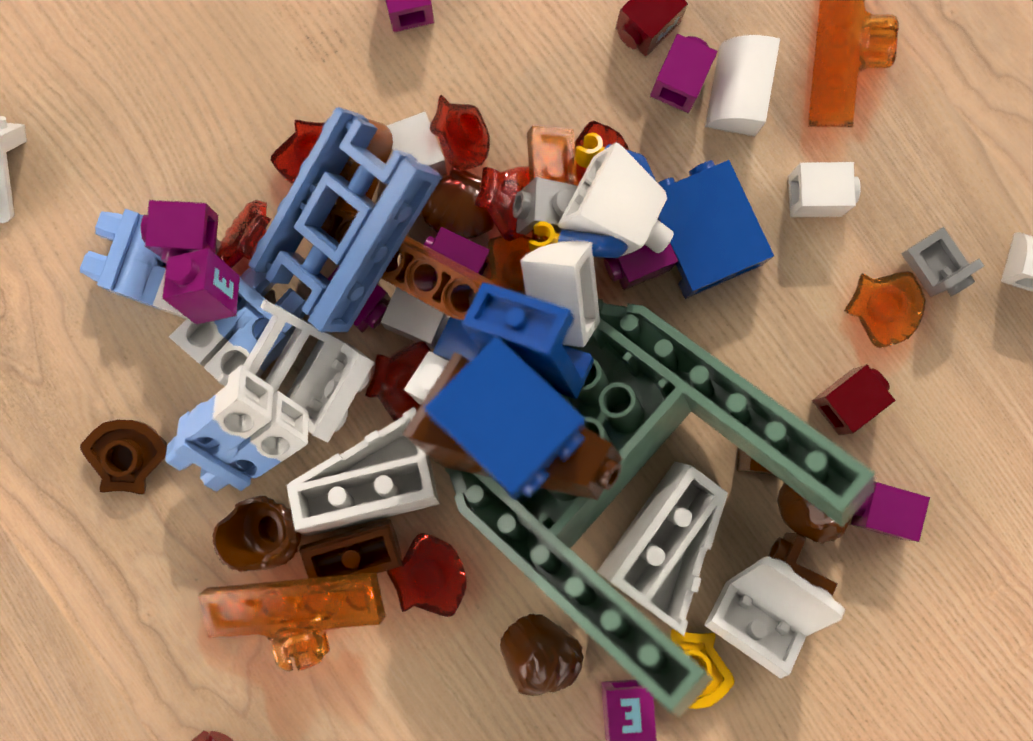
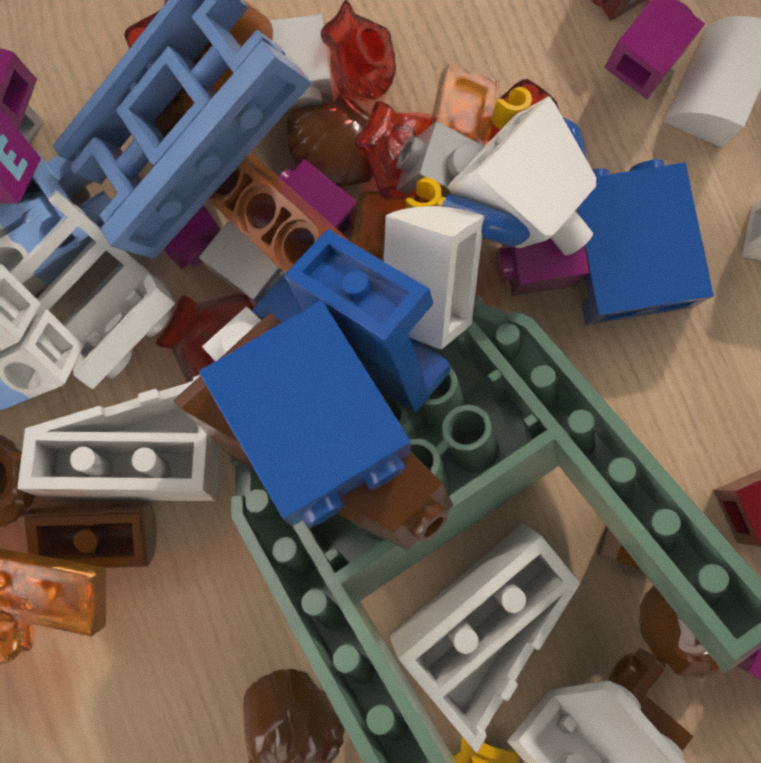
camera: 25 degrees right, 0 degrees up
(244, 233) = (61, 111): clear red animal -> none
(430, 576) = (182, 588): clear red animal -> none

